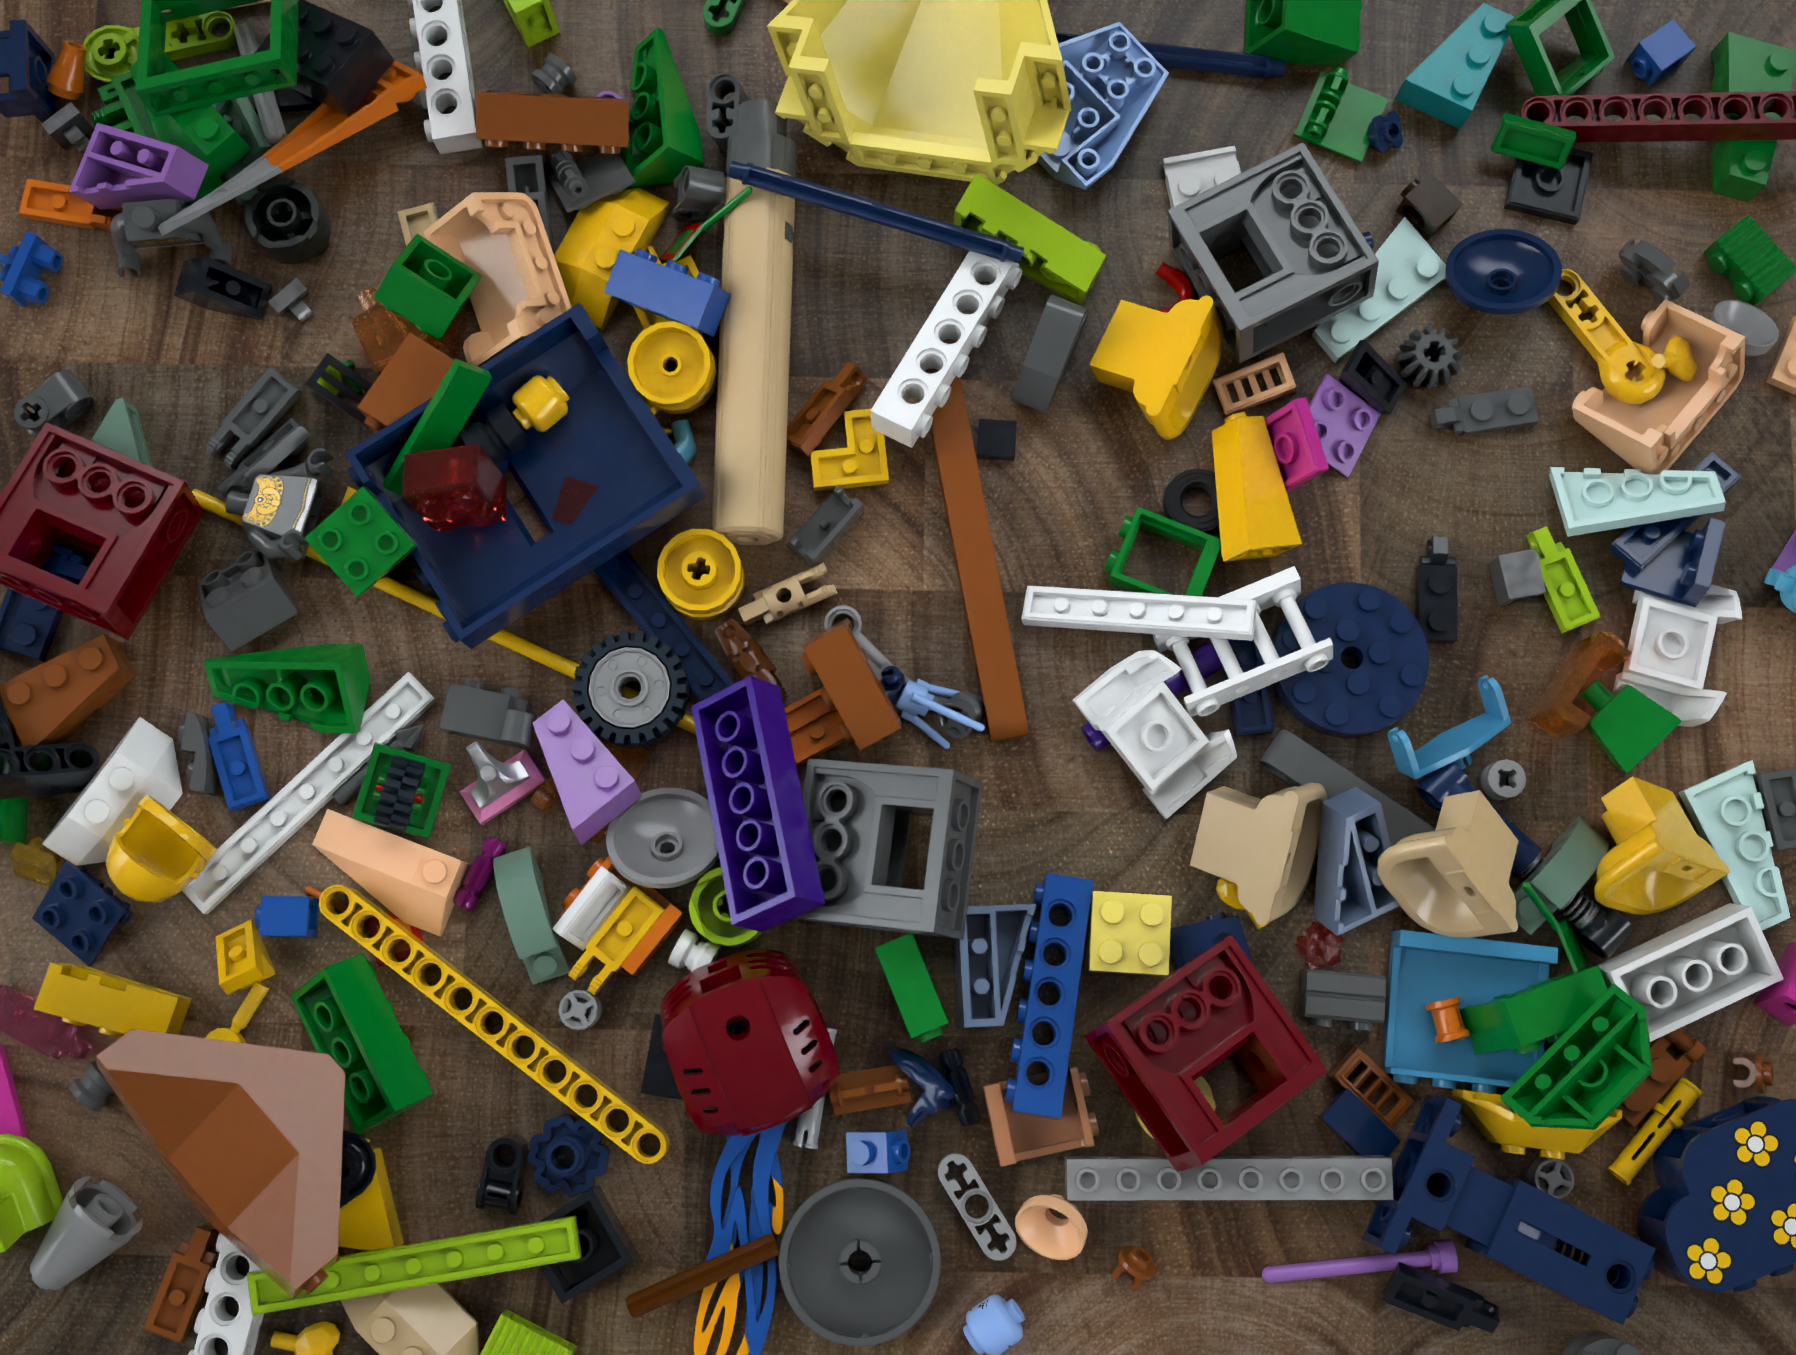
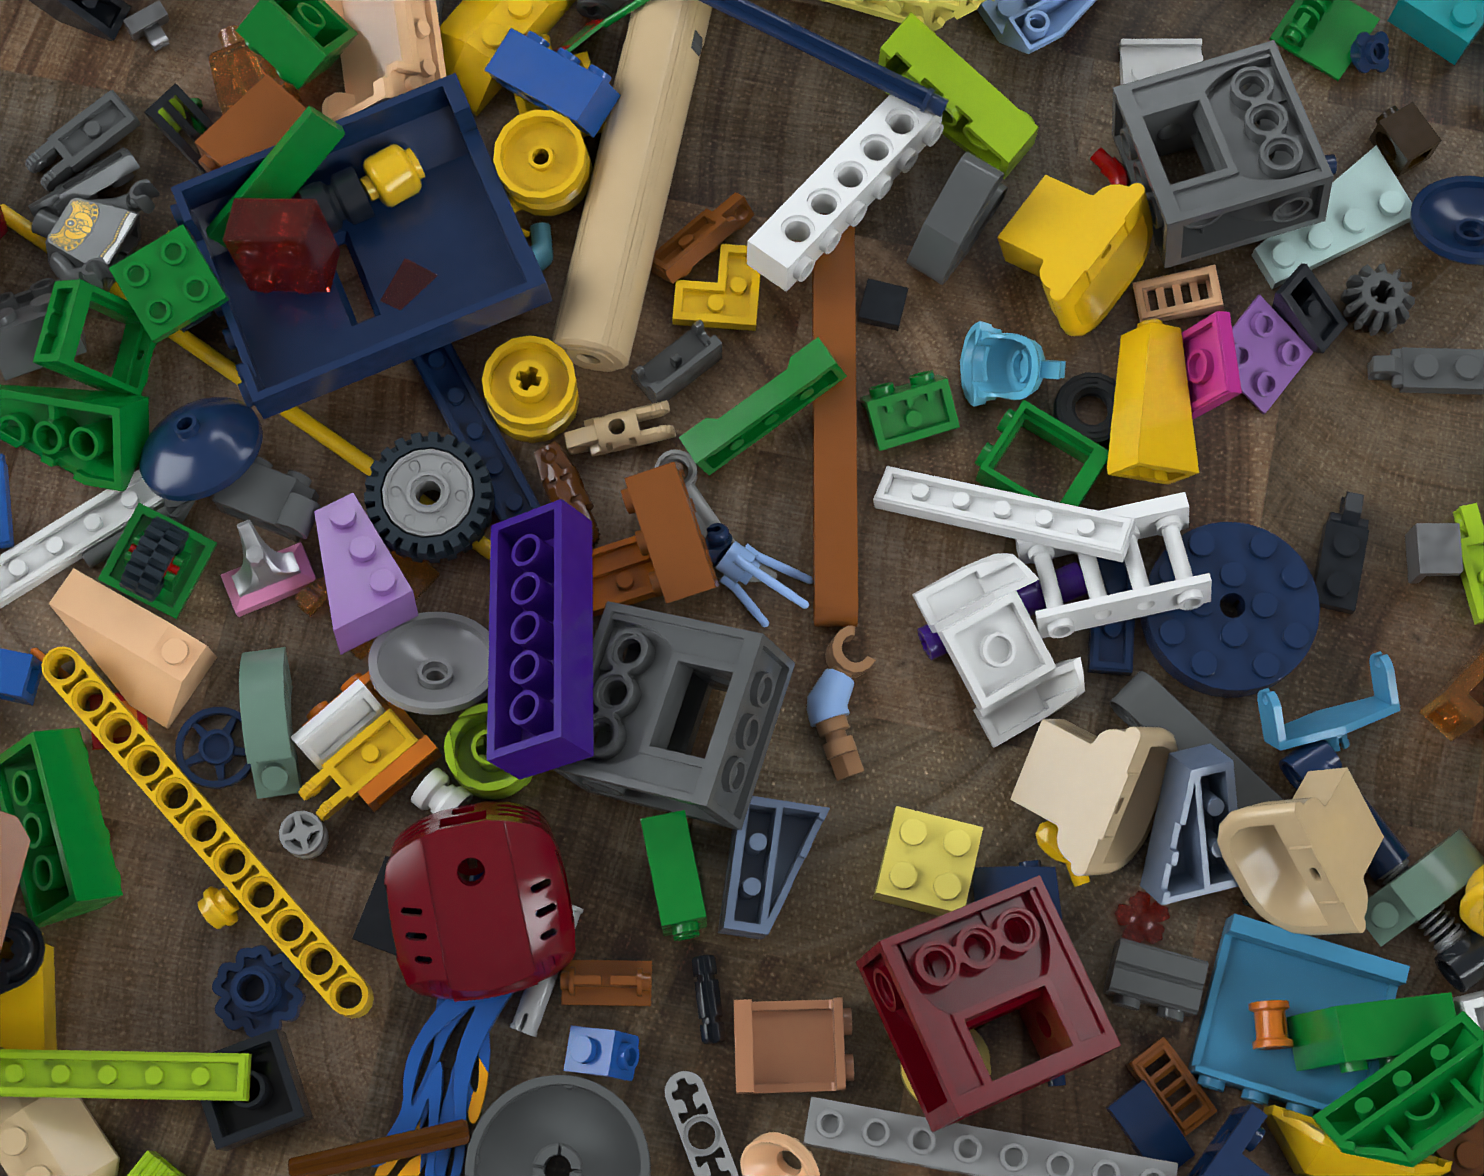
camera: 10 degrees right, 5 degrees down
(275, 602) = (64, 328): none -> green window
(419, 683) = (200, 448): none -> dark blue dish
(479, 874) = (223, 668): magenta axle -> none
(486, 946) = (215, 748): none -> dark blue wheel
(502, 1182) = (180, 1003): black piece -> none
(518, 1088) = (218, 907): none -> yellow plate
(937, 1088) = (680, 996): dark blue piece -> none
(944, 522) = (720, 440): none -> green piece
(970, 706) = (793, 578): dark grey wheel -> none
(1017, 811) = (829, 705): none -> medium nougat piece
(1038, 531) = (910, 410): none -> green bracket
(1074, 897) = (873, 811): blue brick -> none
(1113, 478) = (1003, 365): none -> medium azure helmet
(1494, 784) = (1371, 777): light grey wheel -> none
(1565, 930) = (1422, 948): green piece -> none

